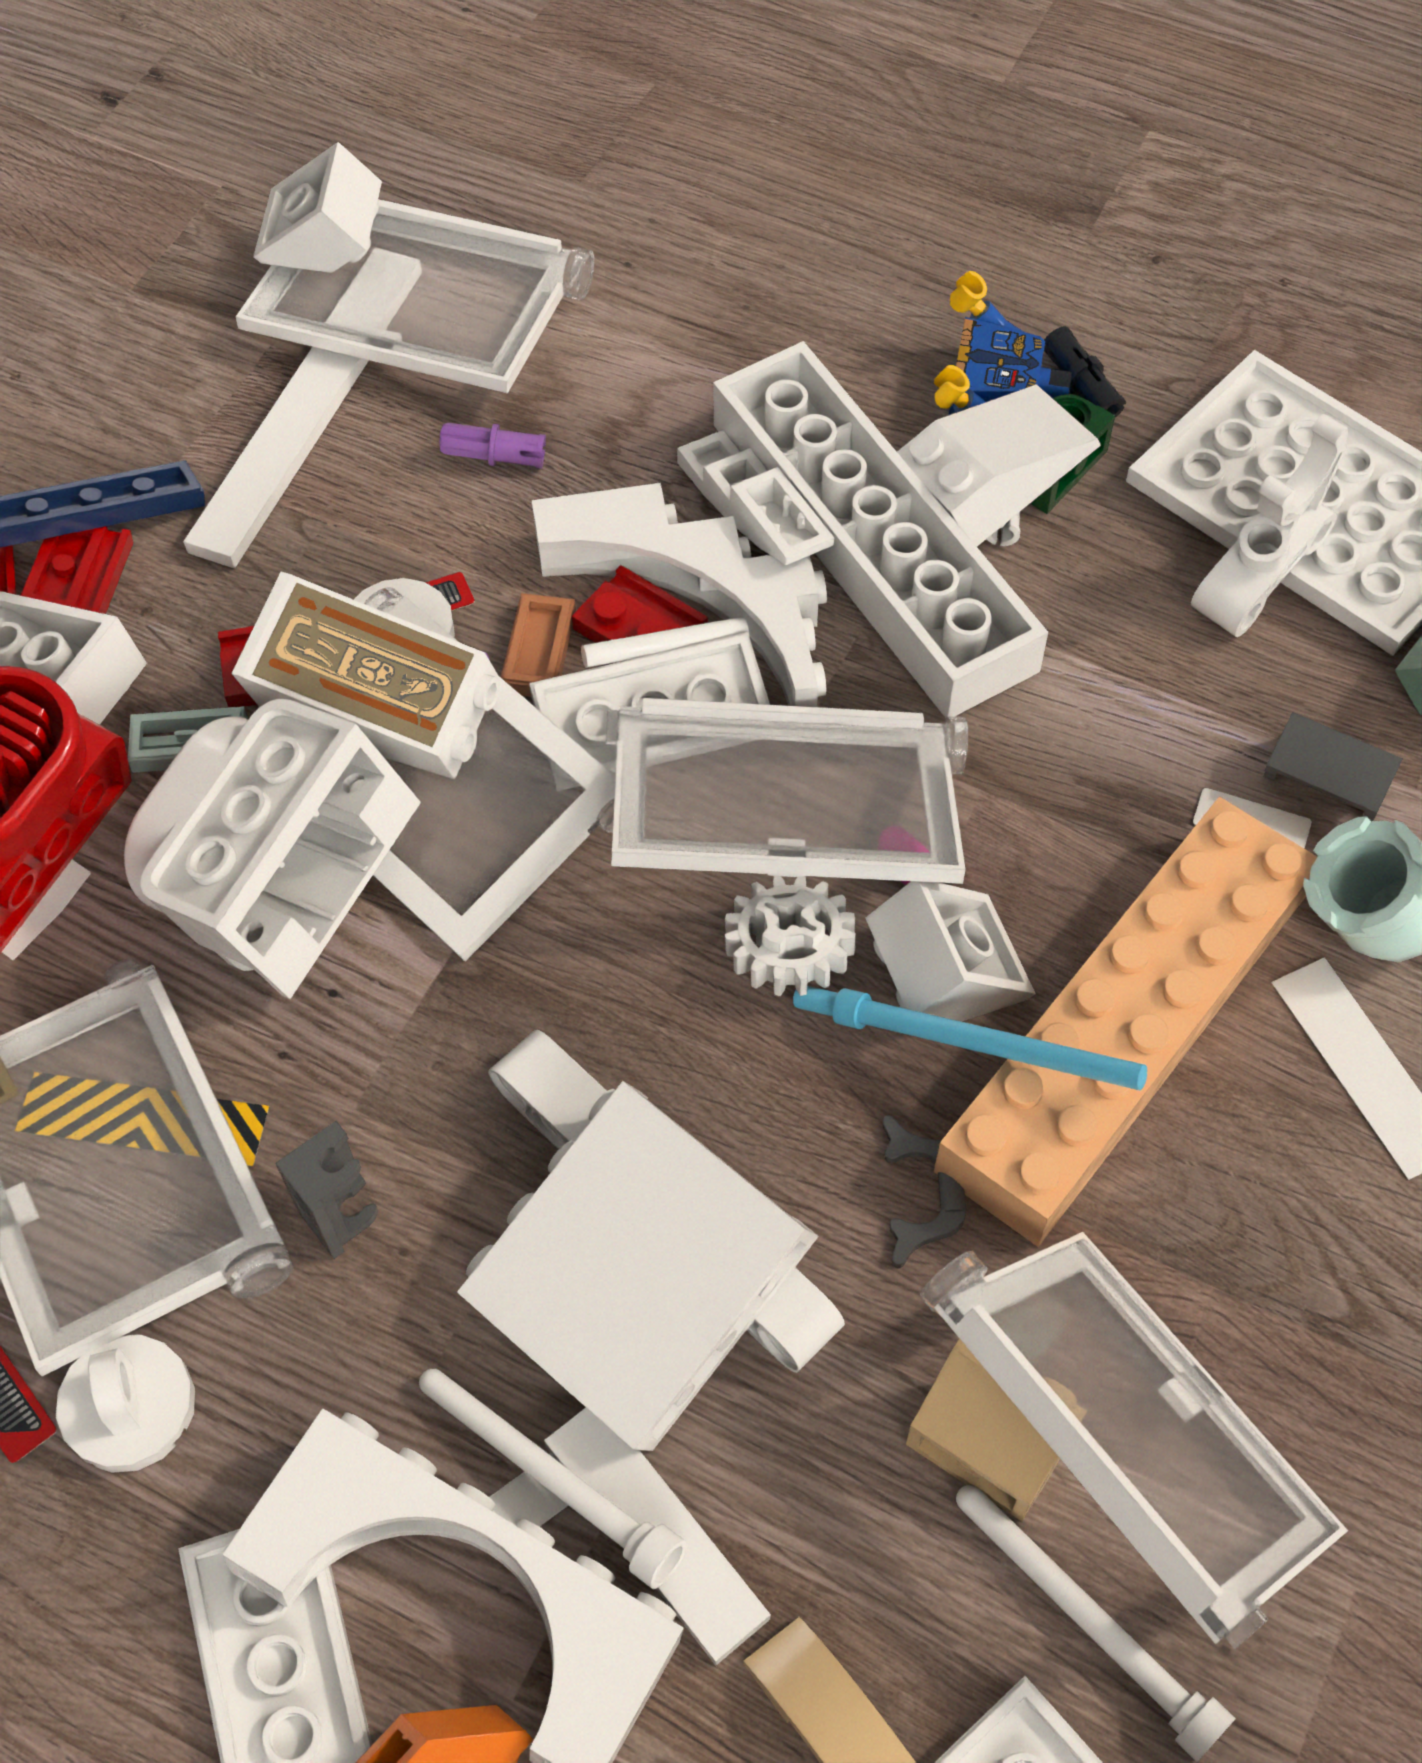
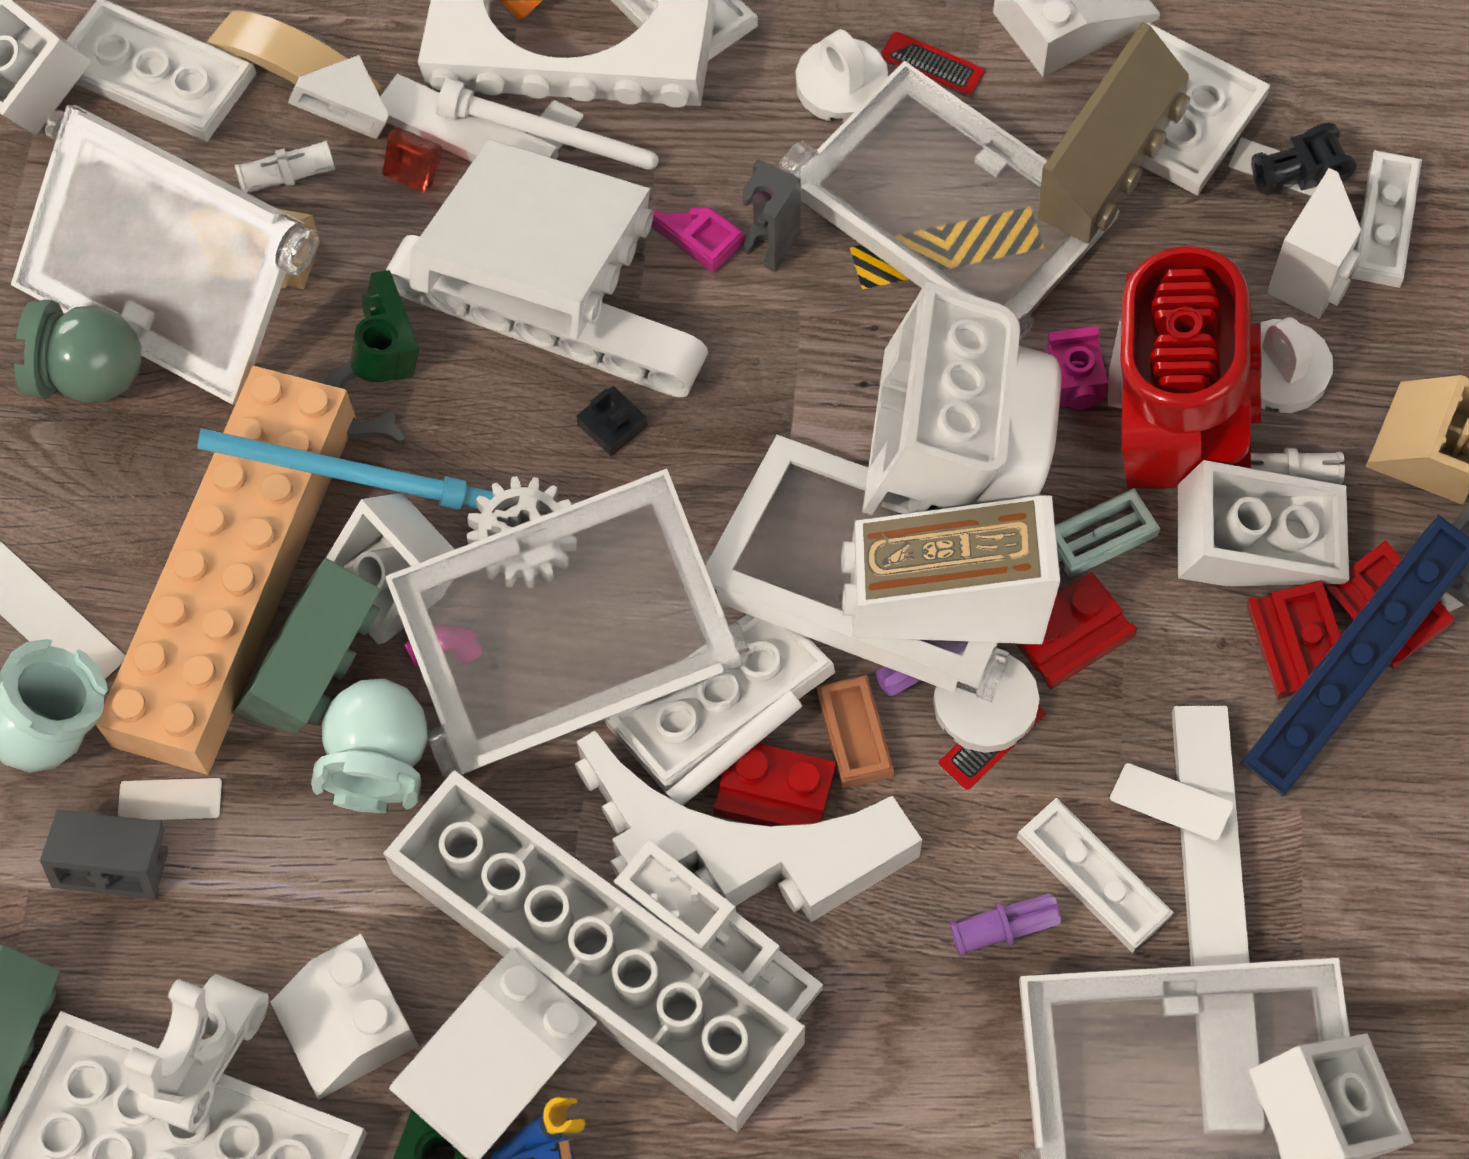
camera: 160 degrees right, 5 degrees up
(97, 901) = (1081, 366): none -> dark pink brick
(288, 485) = (1172, 801): none -> white sticker
(392, 465) = (1094, 875): none -> white tile
(419, 1246) = (701, 235): none -> dark pink tile
(635, 1044) = (611, 420): none -> black tile
(746, 1494) = (411, 159): none -> clear red tile
(812, 1622) = (342, 96): none -> white slope
(857, 1241) = (385, 329): none -> dark green plate
(924, 1560) = (284, 167): none -> white pin
(1029, 752) = (371, 744): none -> light aqua tile
(1070, 877) = (310, 650): none -> sand green slope
(1119, 559) = (342, 1017): none -> white slope
(1266, 1339) = (80, 353): none -> sand green tile

